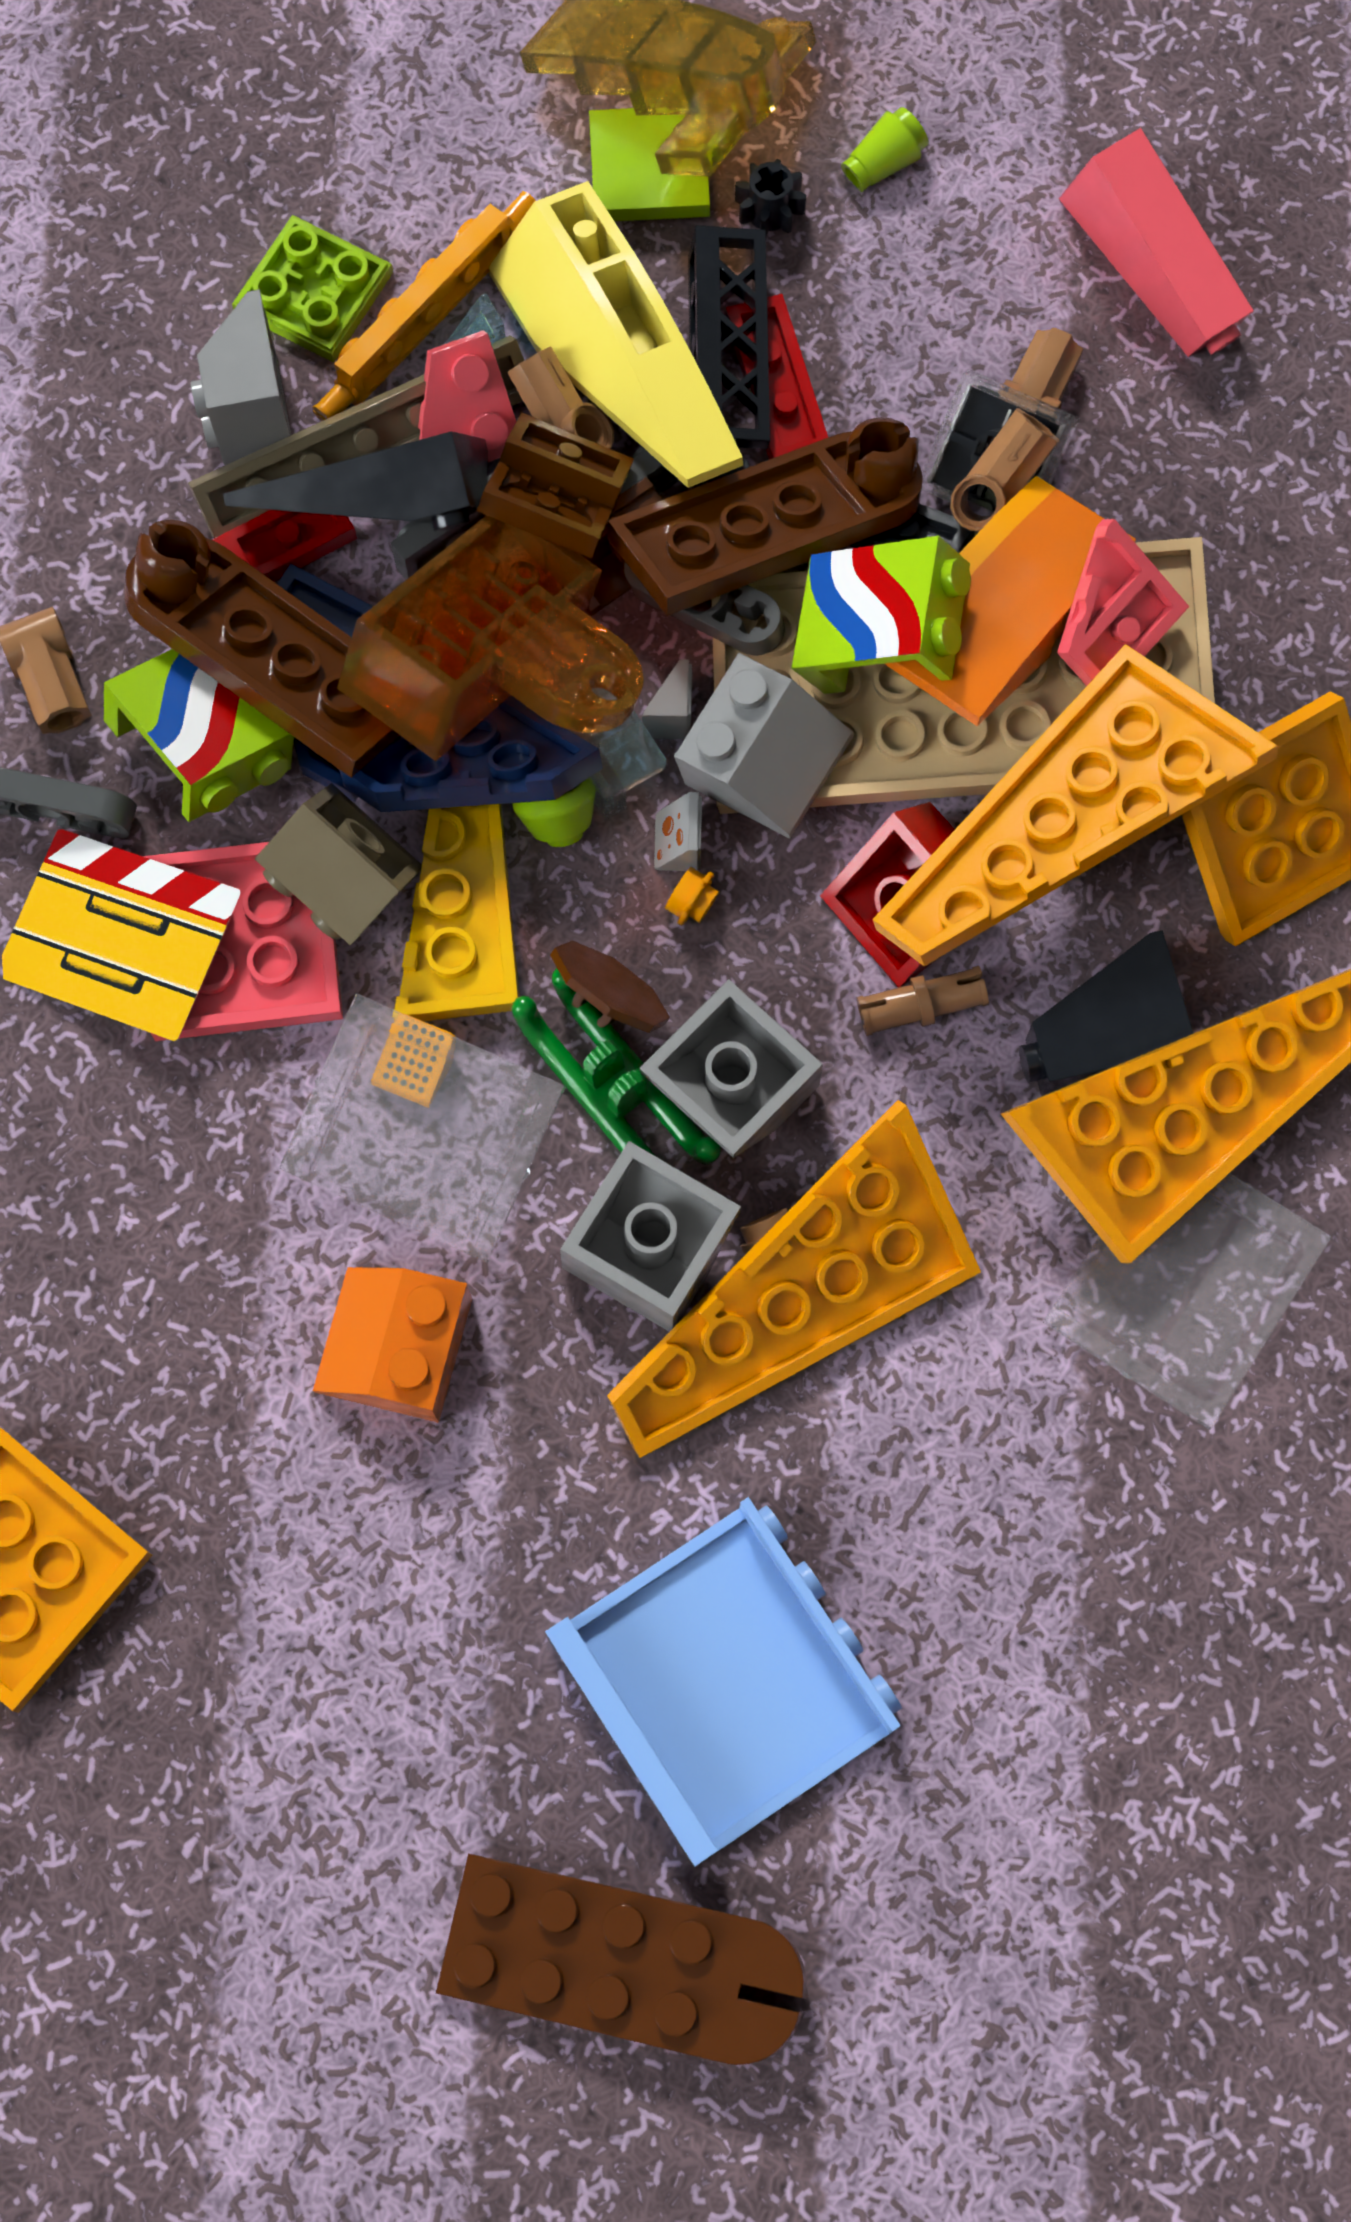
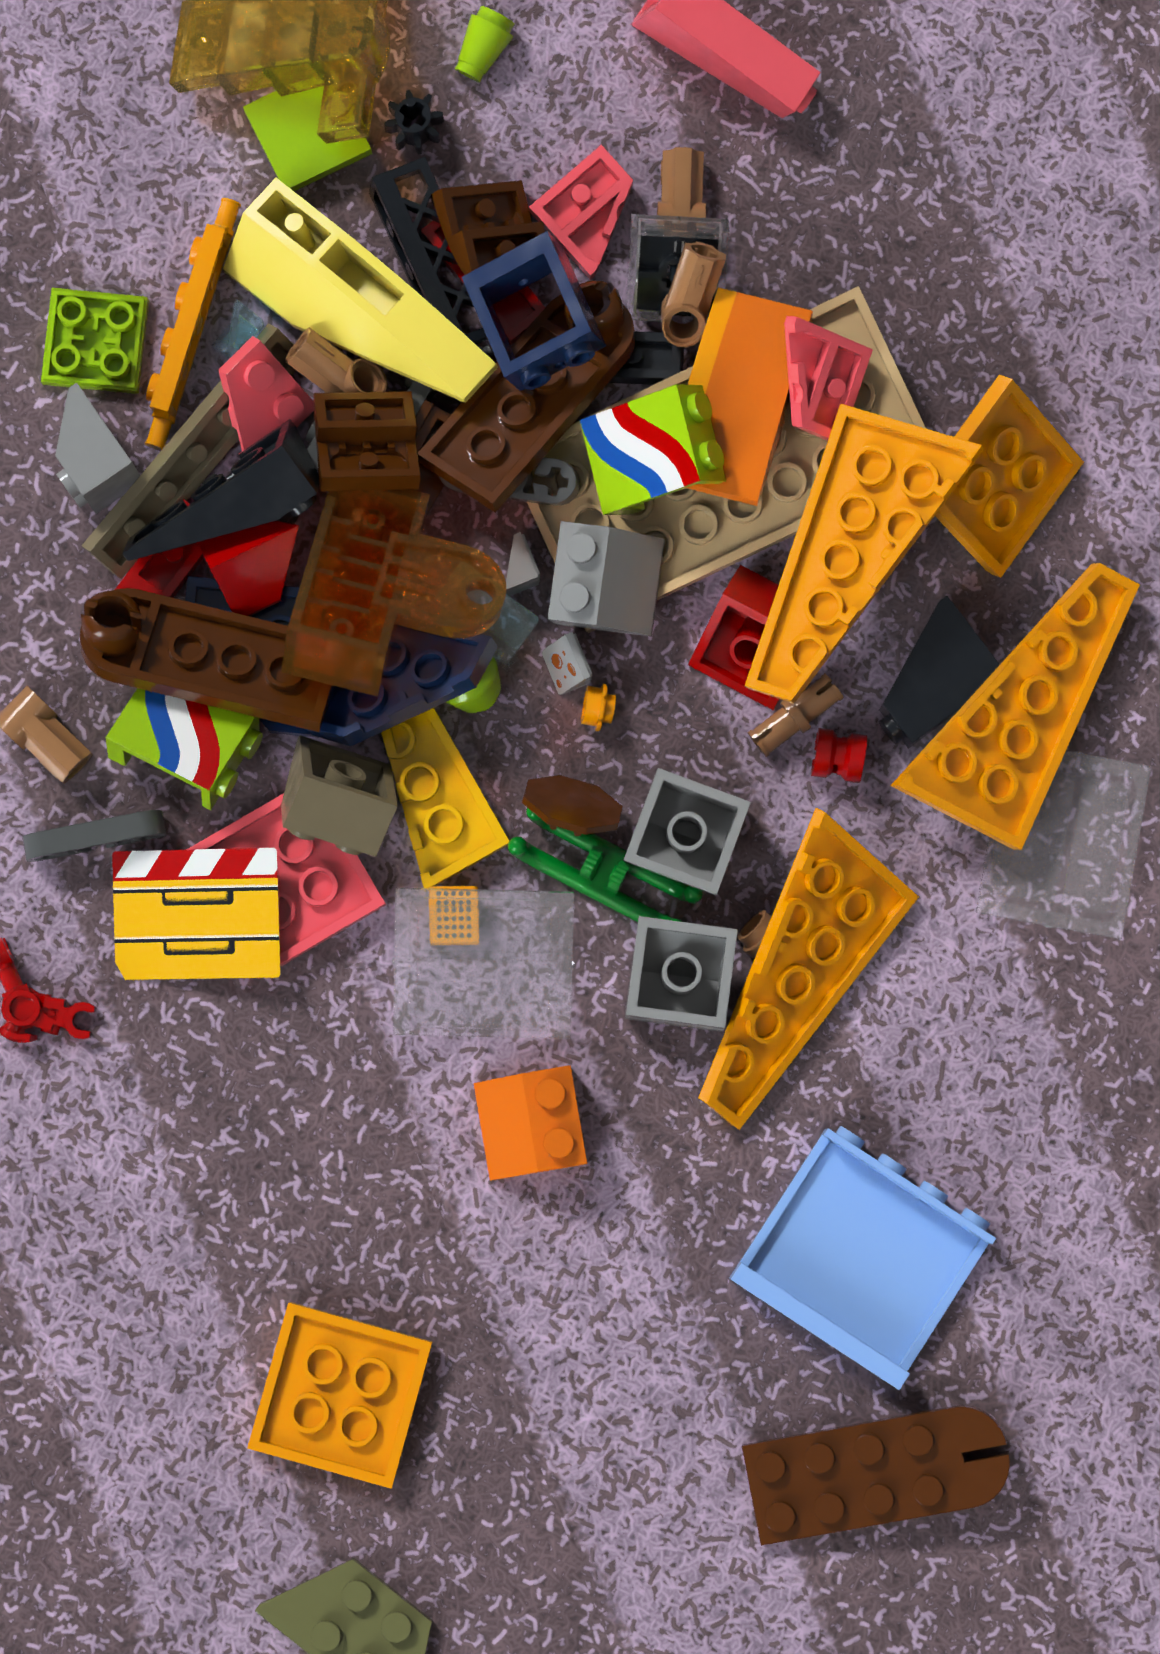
camera: 25 degrees left, 10 degrees up
(360, 564) = (251, 564): none -> red slope
(805, 373) = (514, 272): none -> dark blue window
(806, 332) = (484, 221): none -> reddish brown slope
(922, 357) = (585, 208): none -> coral wing
(954, 1066) = (839, 755): none -> red wheel

